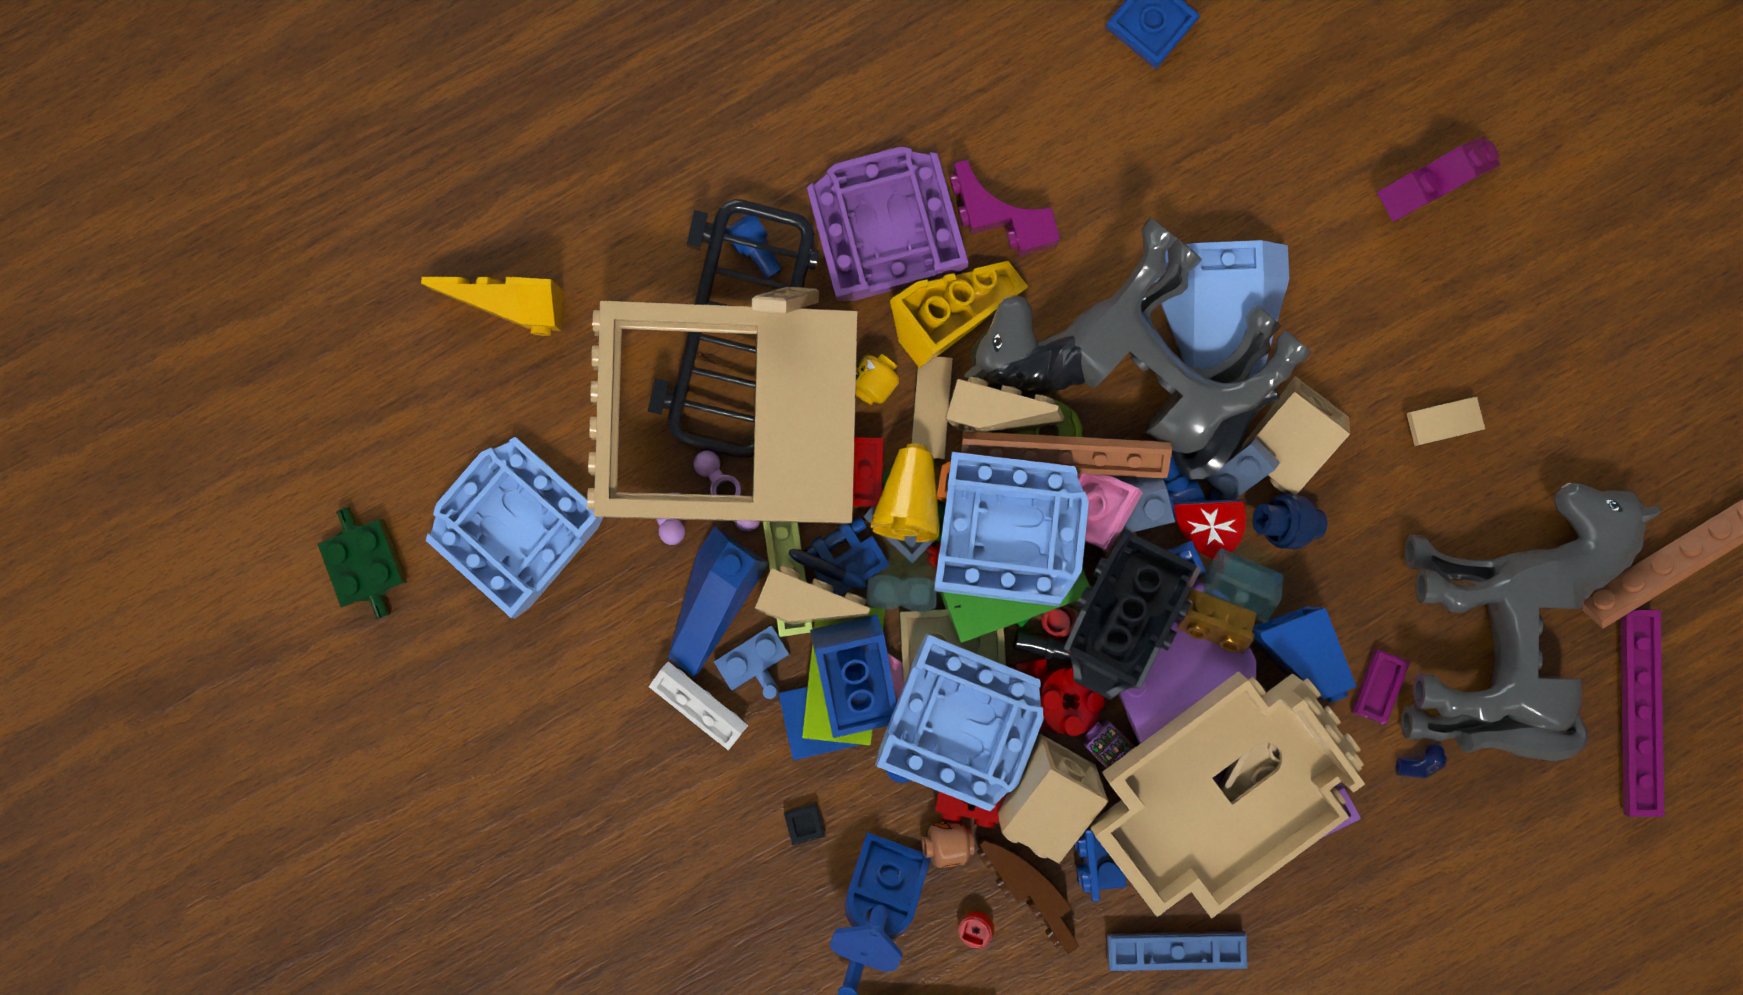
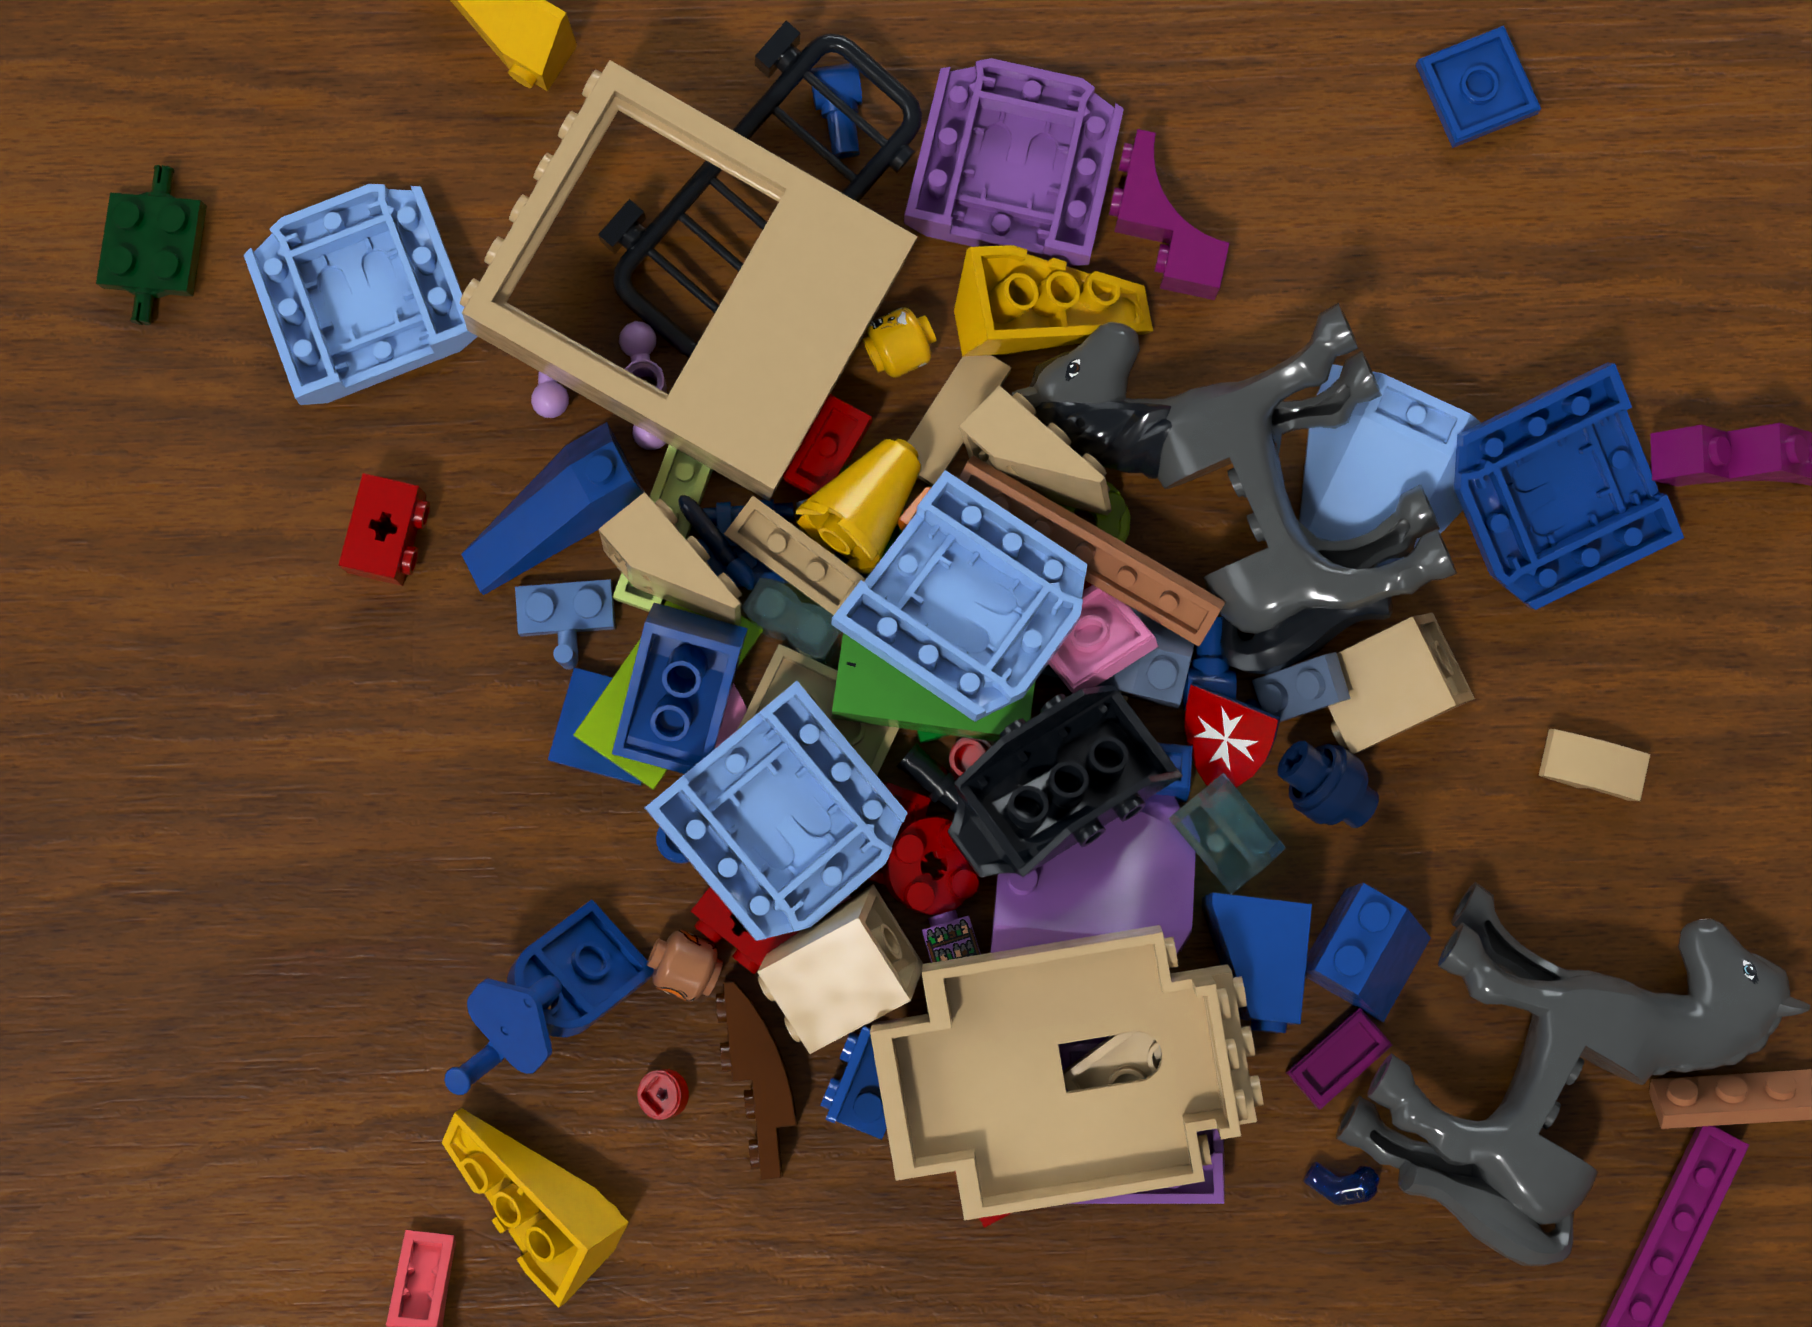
camera: 25 degrees right, 5 degrees down
(604, 686) = (375, 506): none -> red brick
(698, 705) = (466, 630): white plate -> none
(785, 300) = (837, 179): tan tile -> none
(804, 824) = (519, 848): black tile -> none
(884, 553) = (793, 555): none -> tan plate
(1177, 950) = (903, 1256): medium blue plate -> none
(1218, 622) = (1168, 856): pearl gold bracket -> none
(1341, 258) = (1561, 490): none -> blue wedge
(1364, 613) = (1367, 950): none -> blue slope

